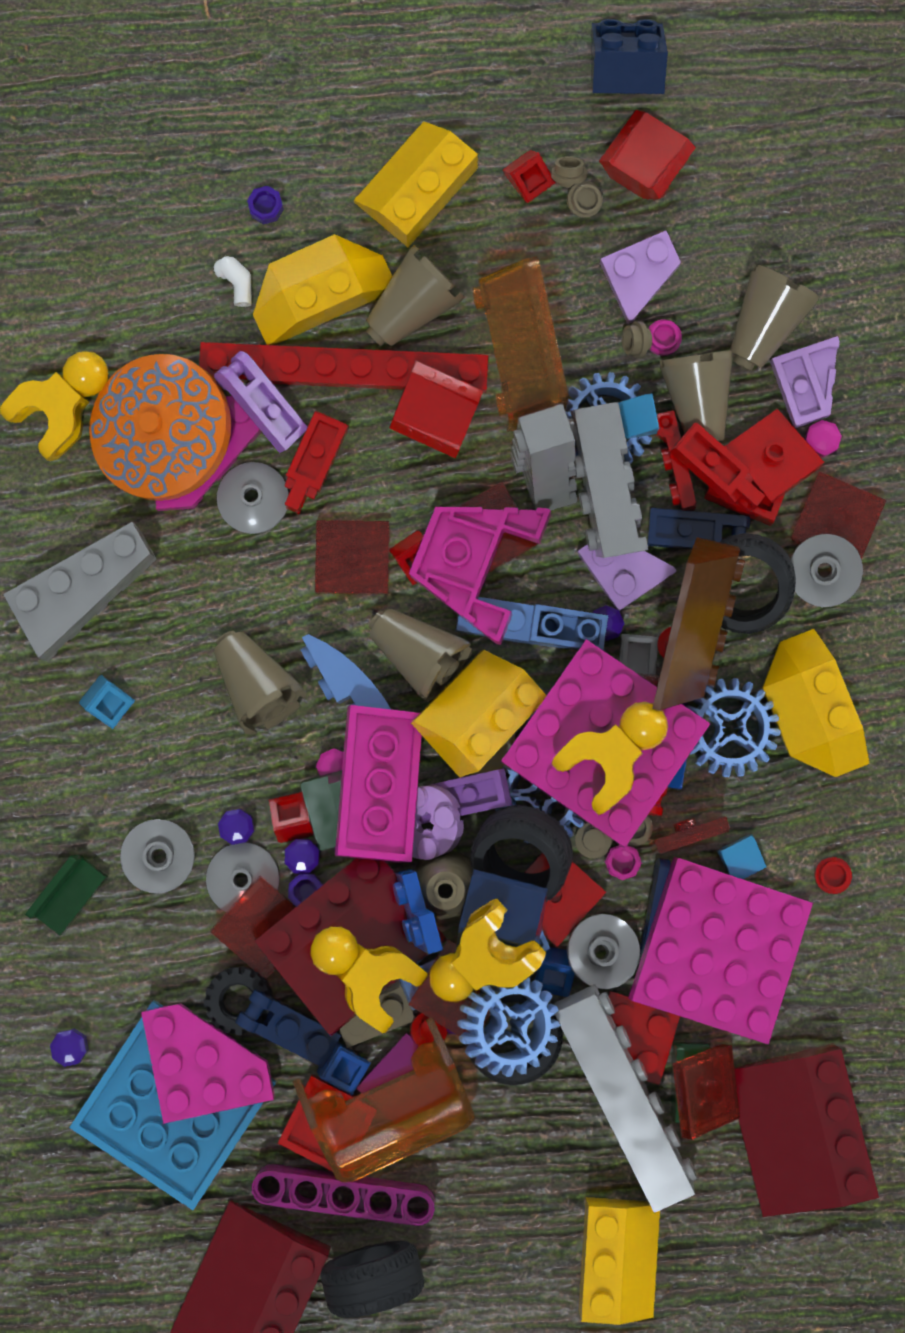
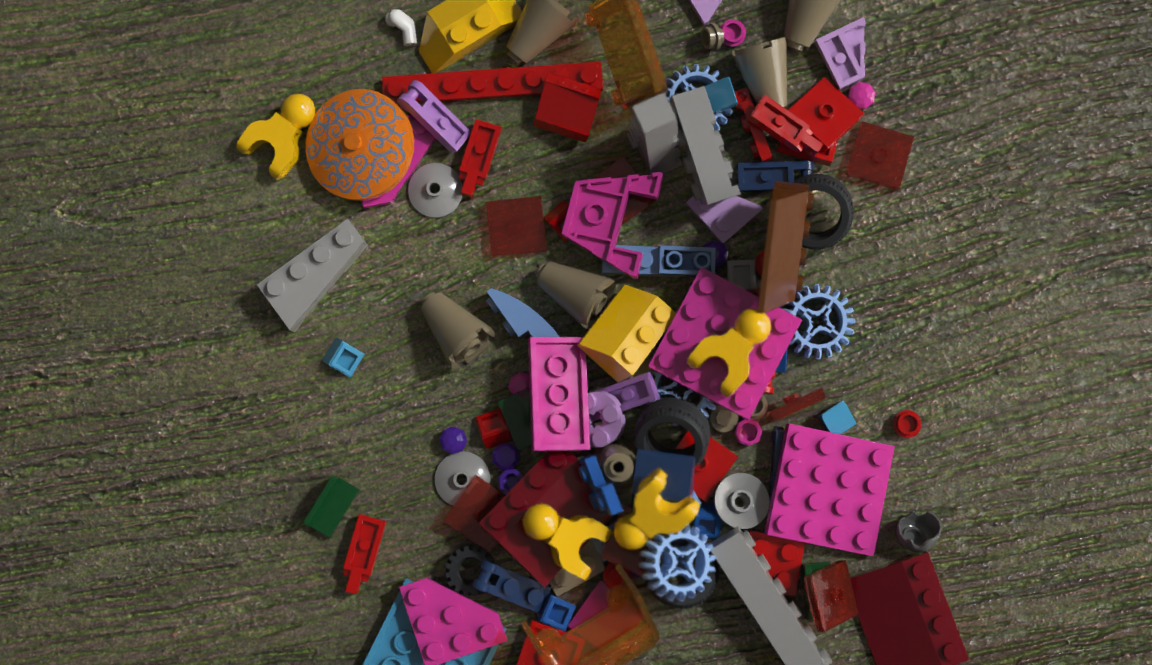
camera: 10 degrees left, 0 degrees up
(69, 1047) = (346, 621): dark purple tile -> none
(101, 958) = (363, 551): none -> red hinge
(138, 857) = (382, 473): light grey dish -> none
(814, 706) = (878, 298): yellow wedge -> none
(831, 1019) = (918, 531): none -> dark grey hair
(844, 575) = (889, 197): light grey dish -> none

